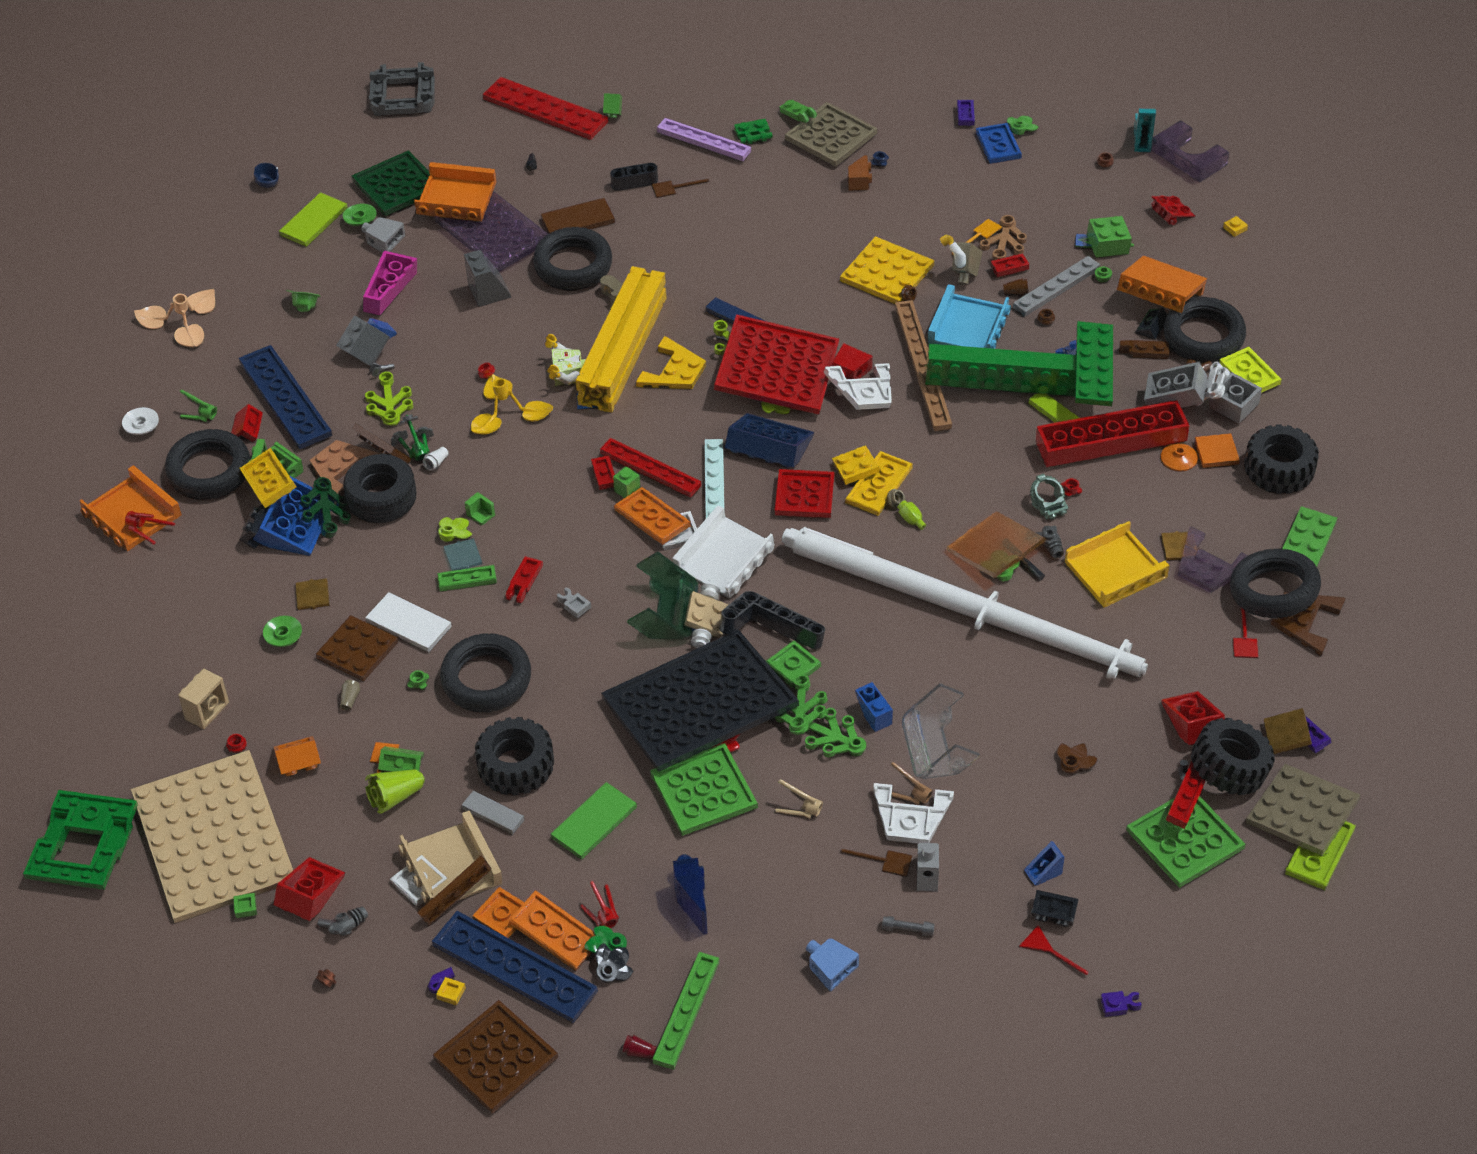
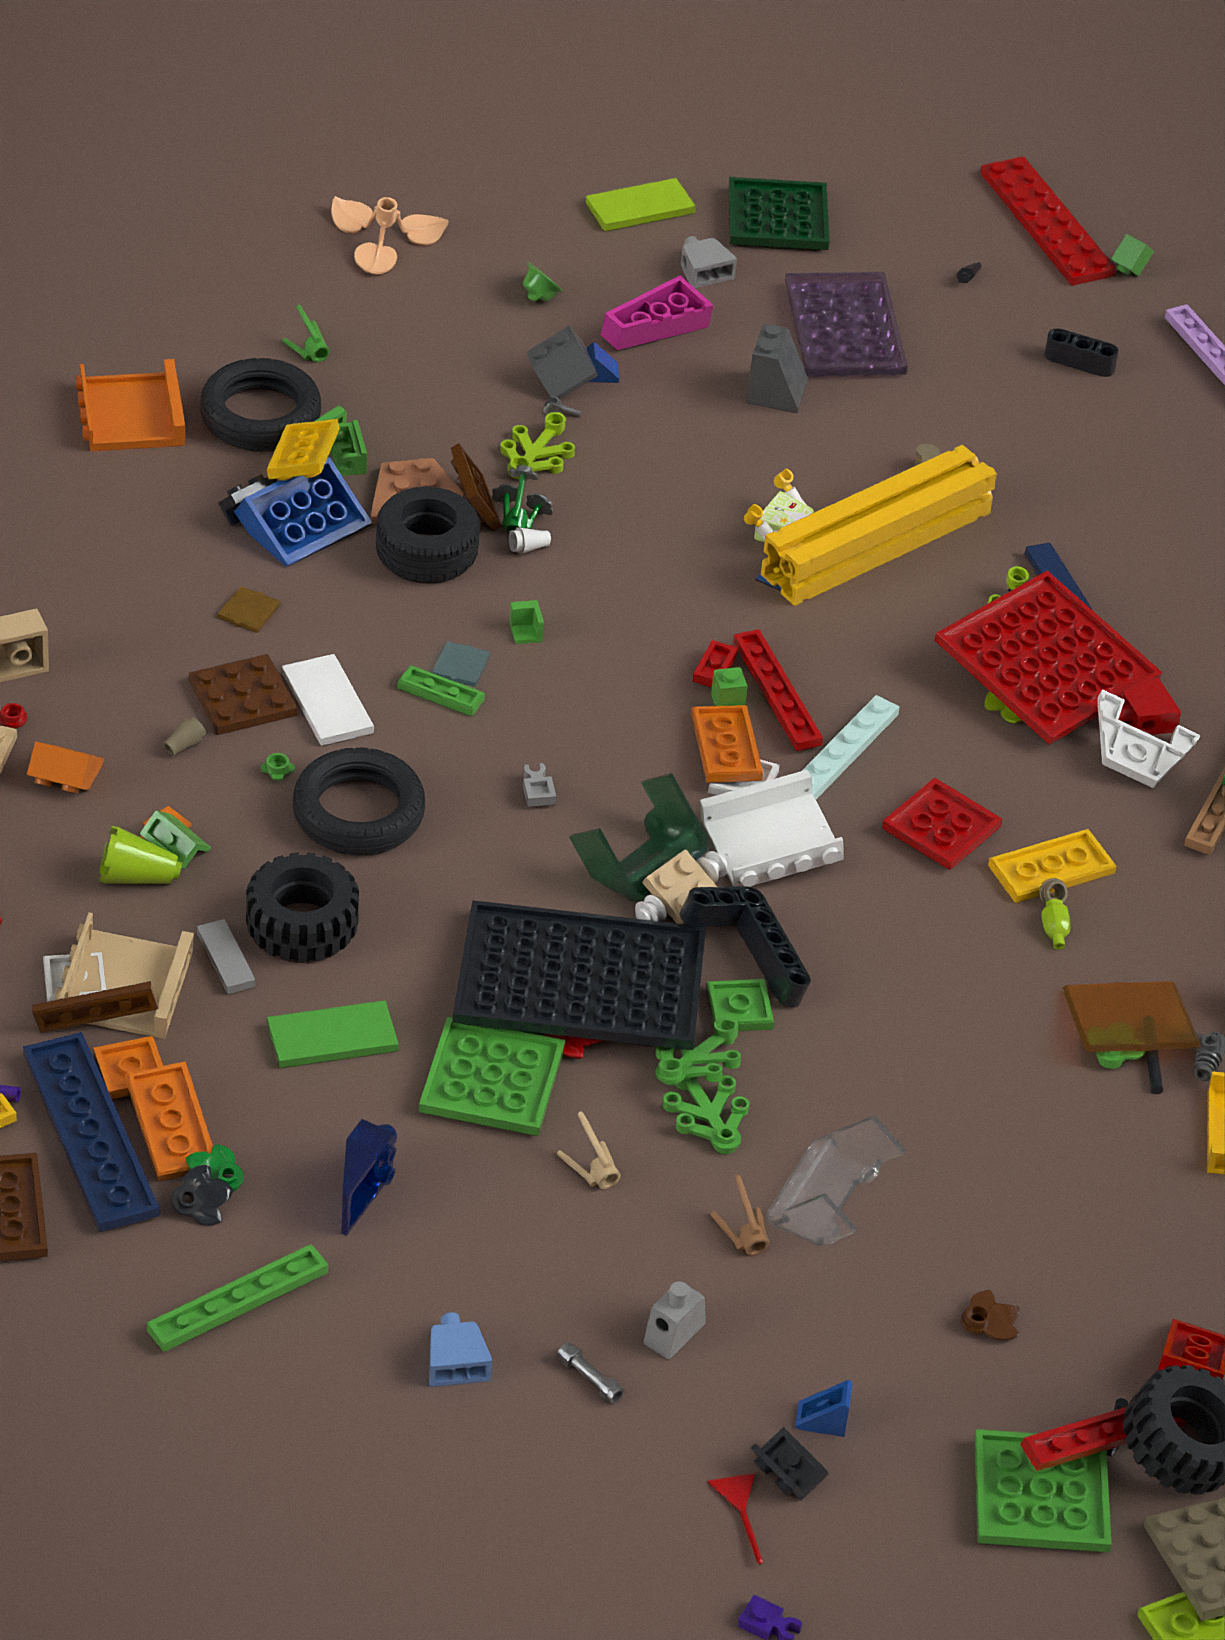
camera: 30 degrees right, 5 degrees down
(136, 520) = (125, 420): red plant -> none
(140, 421) = (230, 318): white dish -> none
(247, 422) = (350, 385): red panel -> none
(266, 175) = (627, 126): dark blue hair -> none
(282, 631) = (173, 627): bright green dish -> none
(285, 397) = (419, 380): dark blue plate -> none
(324, 488) = (347, 518): dark green plant -> none
(359, 214) = (697, 224): bright green dish -> none
(378, 90) = (900, 137): dark grey plate -> none
(453, 529) = (476, 628): lime plate -> none
(456, 192) = (836, 257): orange panel -> none
(486, 370) = (682, 476): red plate -> none
(500, 388) = (672, 501): yellow plant -> none
(524, 578) = (504, 727): red hinge -> none
(566, 238) = (909, 376): black tyre -> none
(585, 215) = (965, 365): reddish brown tile -> none
(606, 916) = (244, 1141): red plant -> none
(638, 1047) = (143, 1299): dark red cone -> none
(667, 188) = (1115, 389): reddish brown piece -> none
(681, 370) = (924, 603): yellow wing -> none
(768, 440) = (955, 738): dark blue slope -> none
(855, 465) = (1039, 826): yellow plate -> none
(874, 707) = (787, 1107): blue slope -> none
(892, 575) = (1033, 1076): white piece -> none
(894, 863) = (643, 1295): reddish brown piece -> none
(908, 821) = (709, 1262): white wing -> none

